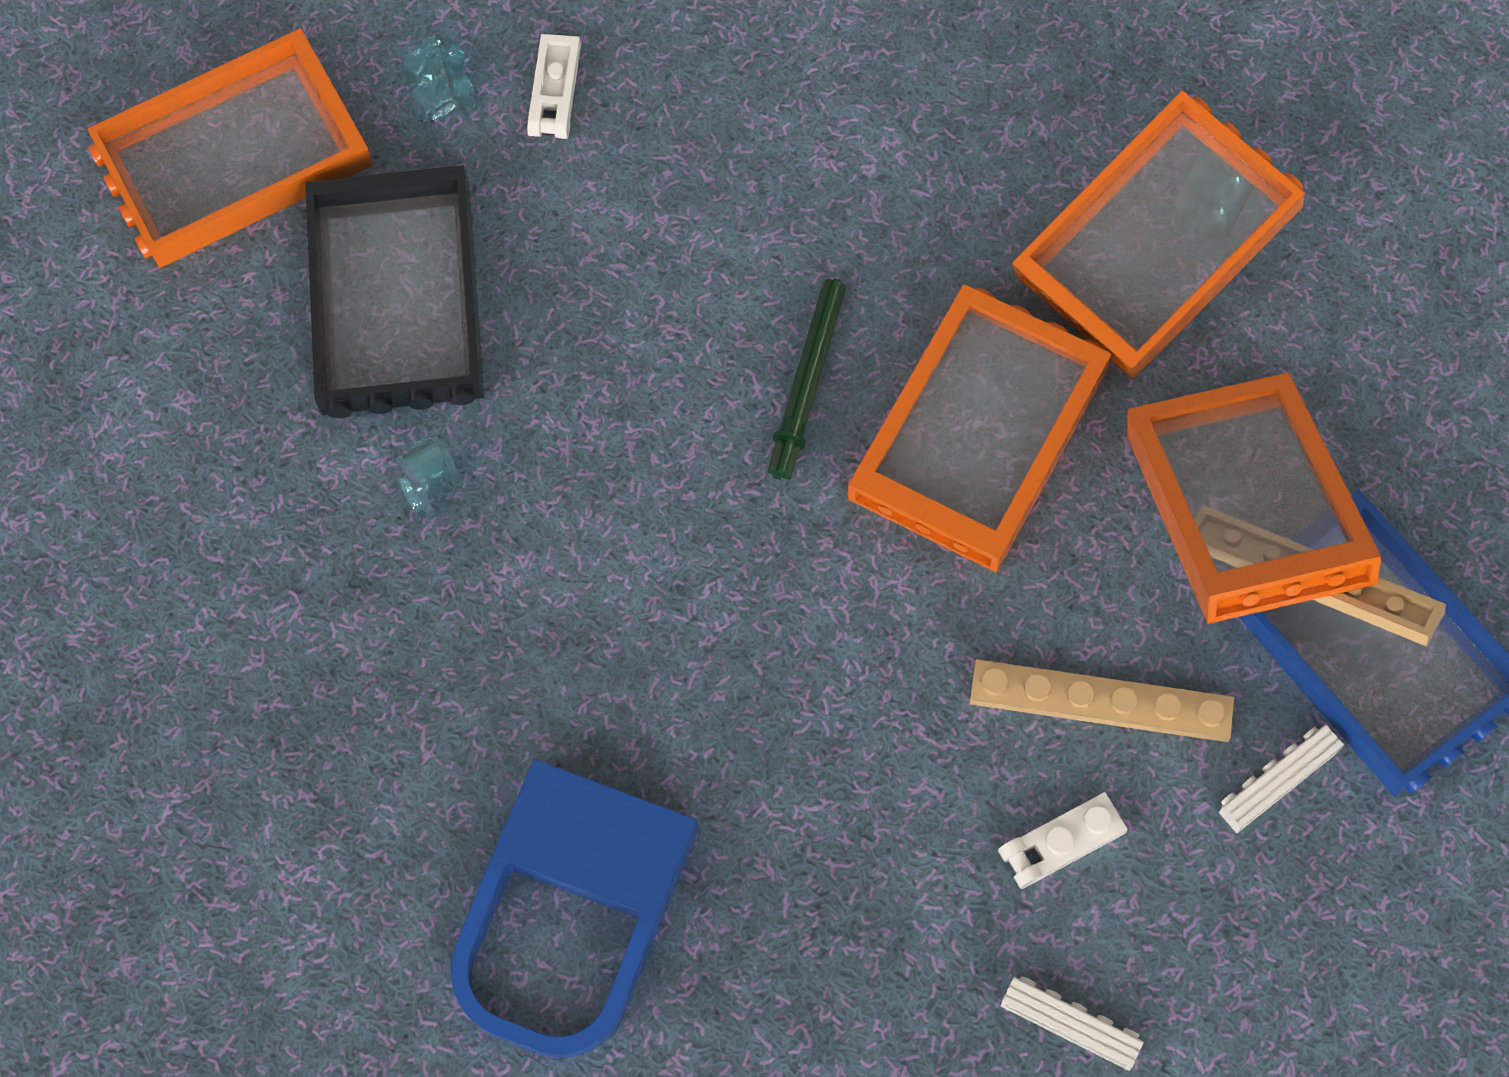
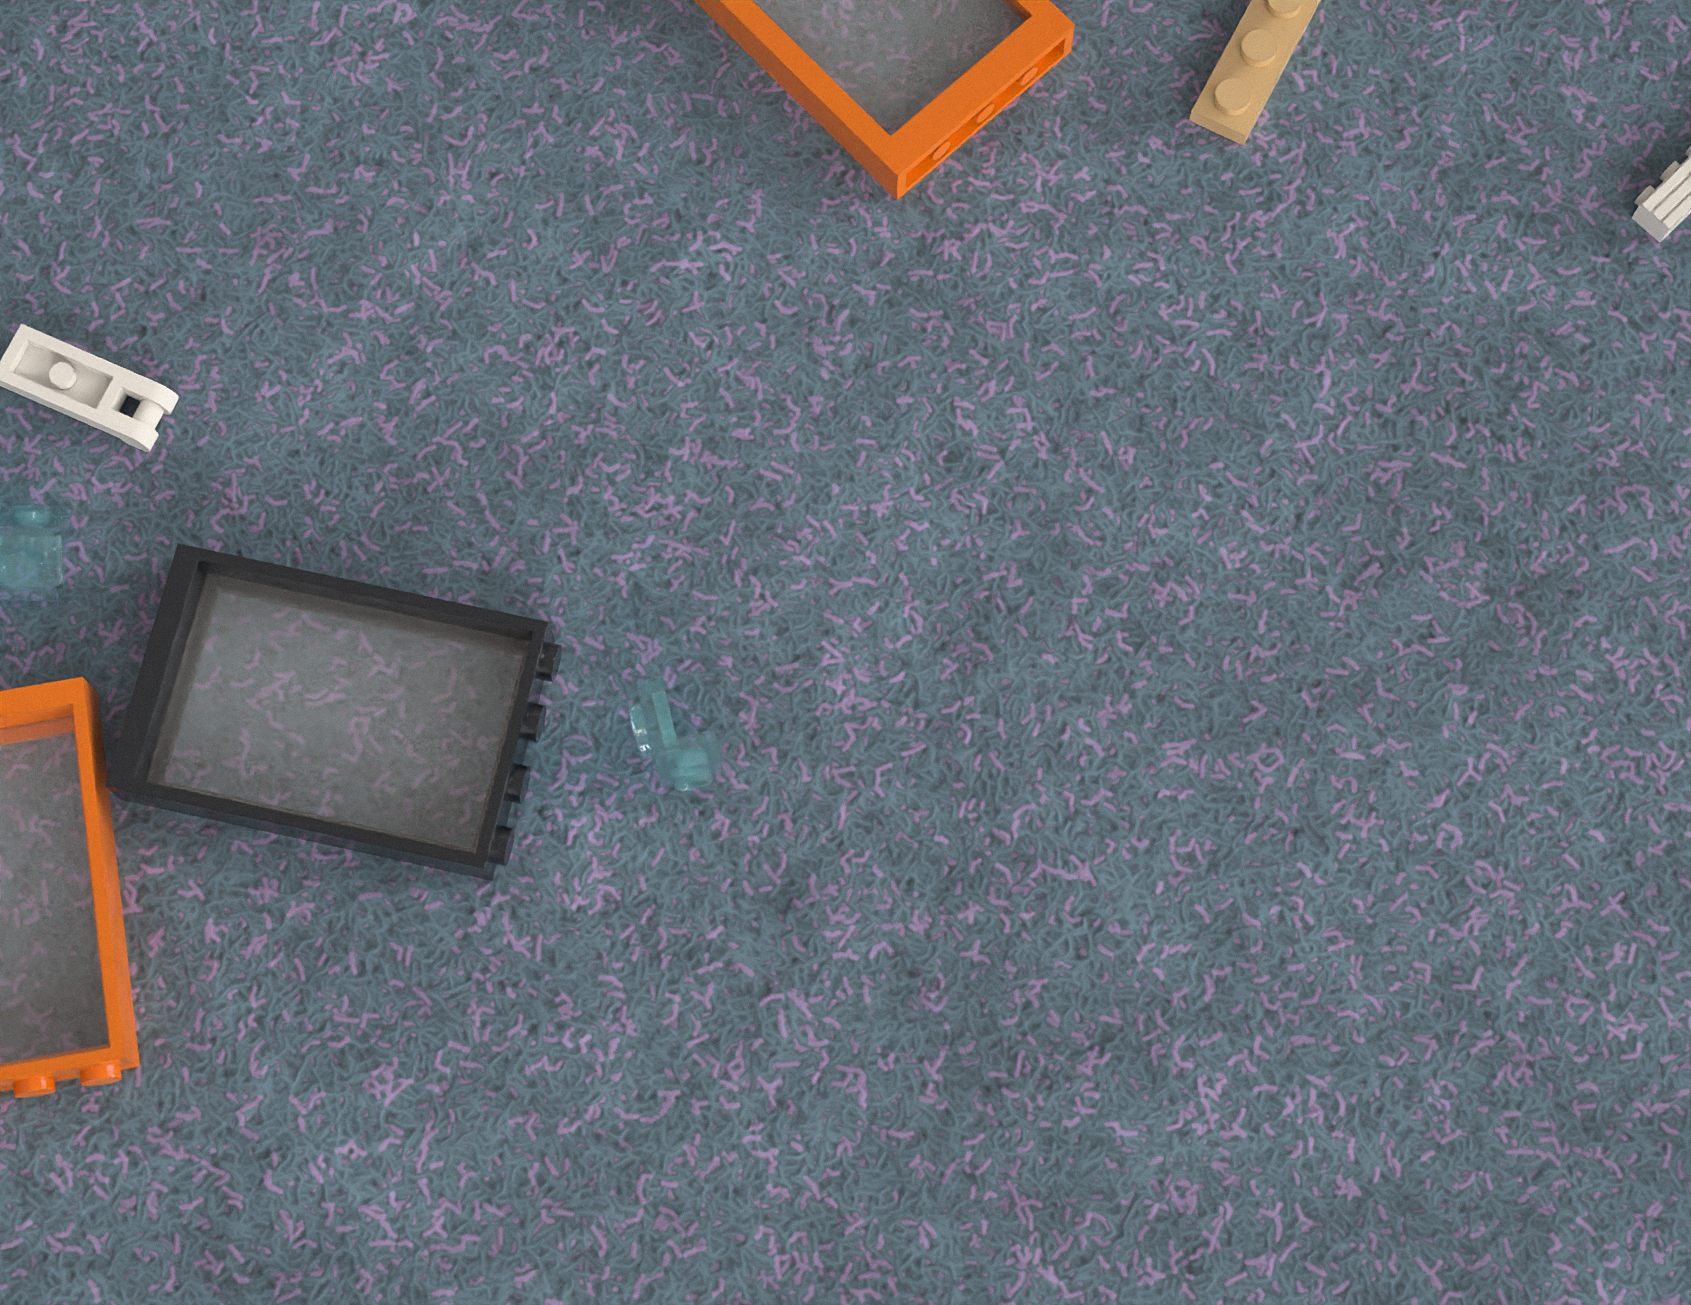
camera: 75 degrees left, 5 degrees up
(593, 847) = (1302, 675): blue window -> none
(790, 436) = (766, 228): dark green axle -> none
(1064, 840) = (1469, 91): white plate -> none

